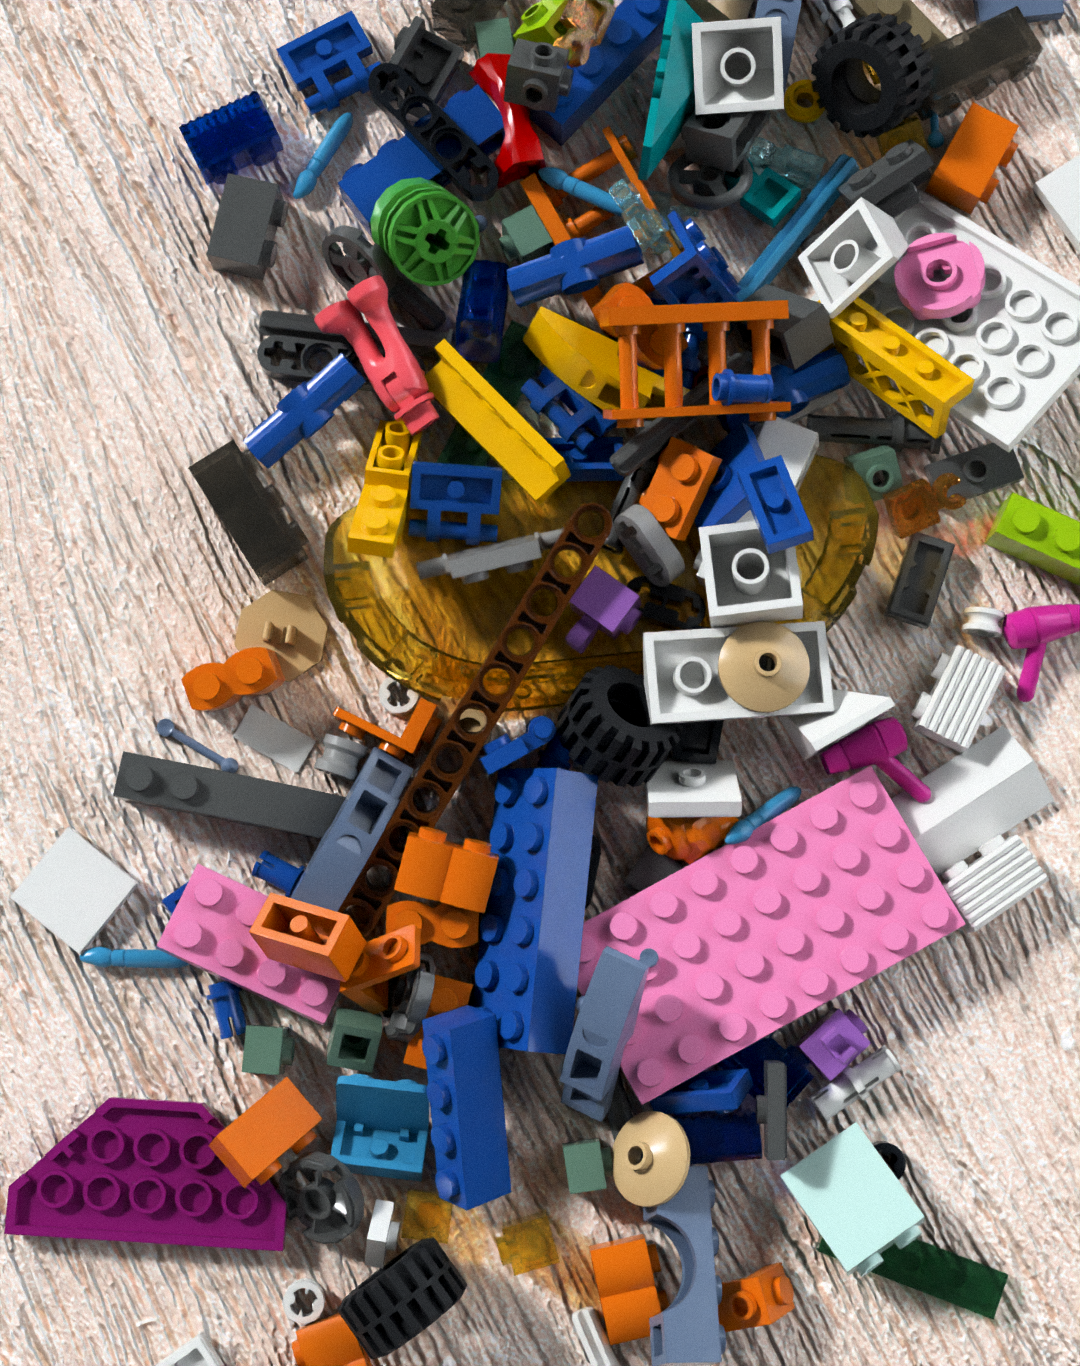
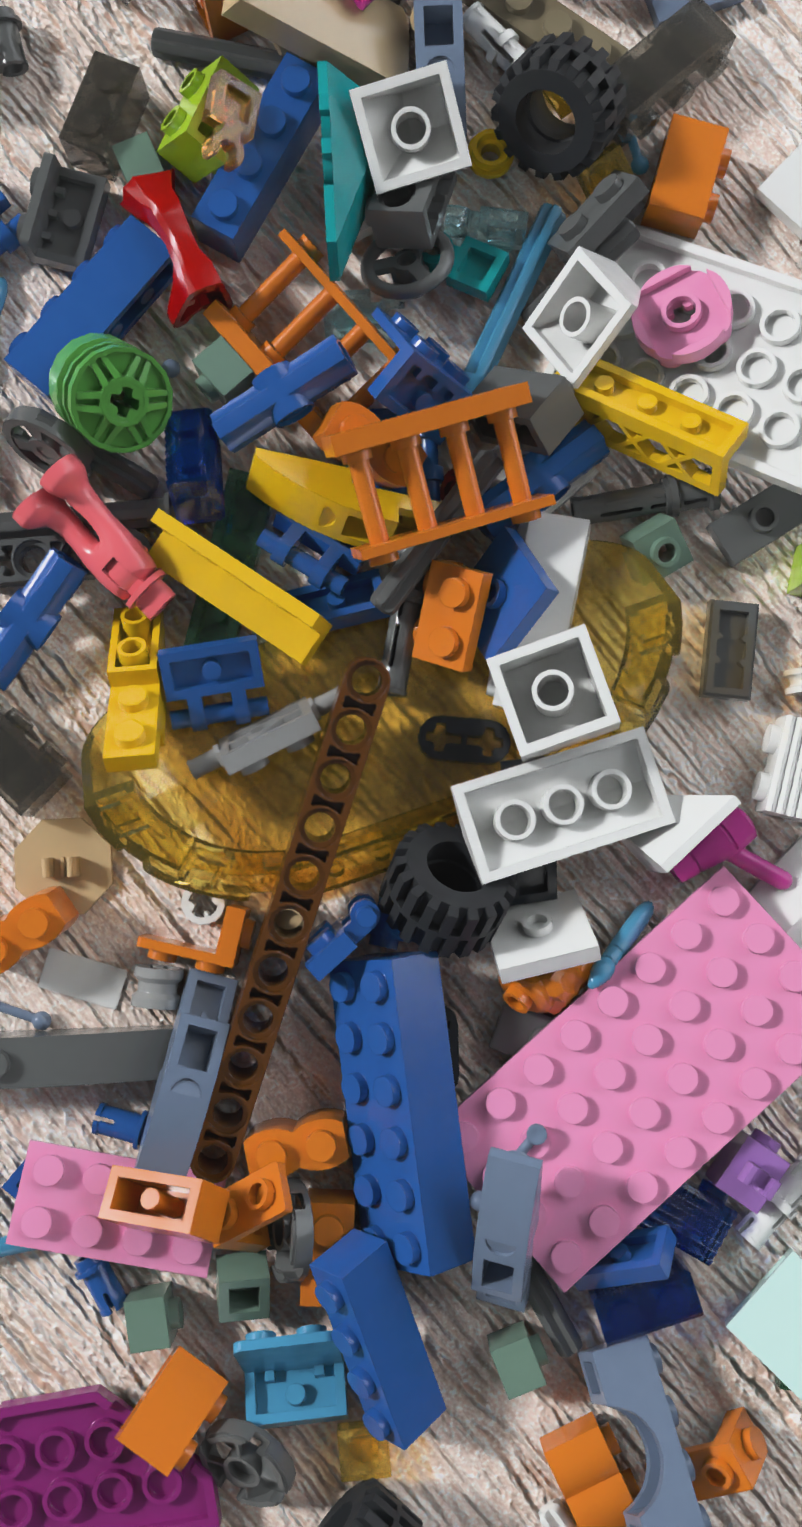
camera: 15 degrees left, 5 degrees up
(382, 1234) = (320, 1485): white plate -> none
(438, 128) = (96, 276): black beam -> none
(447, 870) = (298, 1093): orange brick -> none
(528, 1243) = (477, 1456): clear yellow brick -> none
(537, 75) = (191, 188): dark grey brick -> none
(582, 190) = (245, 301): dark azure piece -> none
(603, 606) = (400, 761): medium lavender brick -> none
(645, 224) = (348, 329): clear light blue plate -> none
(649, 545) = (434, 683): light grey beam -> none
(663, 1161) = (601, 1340): tan dish -> none
(741, 387) = (488, 493): blue pin -> none
(748, 682) = (564, 796): tan dish -> none
(772, 1110) = (705, 1267): dark grey plate -> none
(775, 504) = (566, 617): blue plate -> none
(917, 504) = (711, 569): clear orange plate -> none

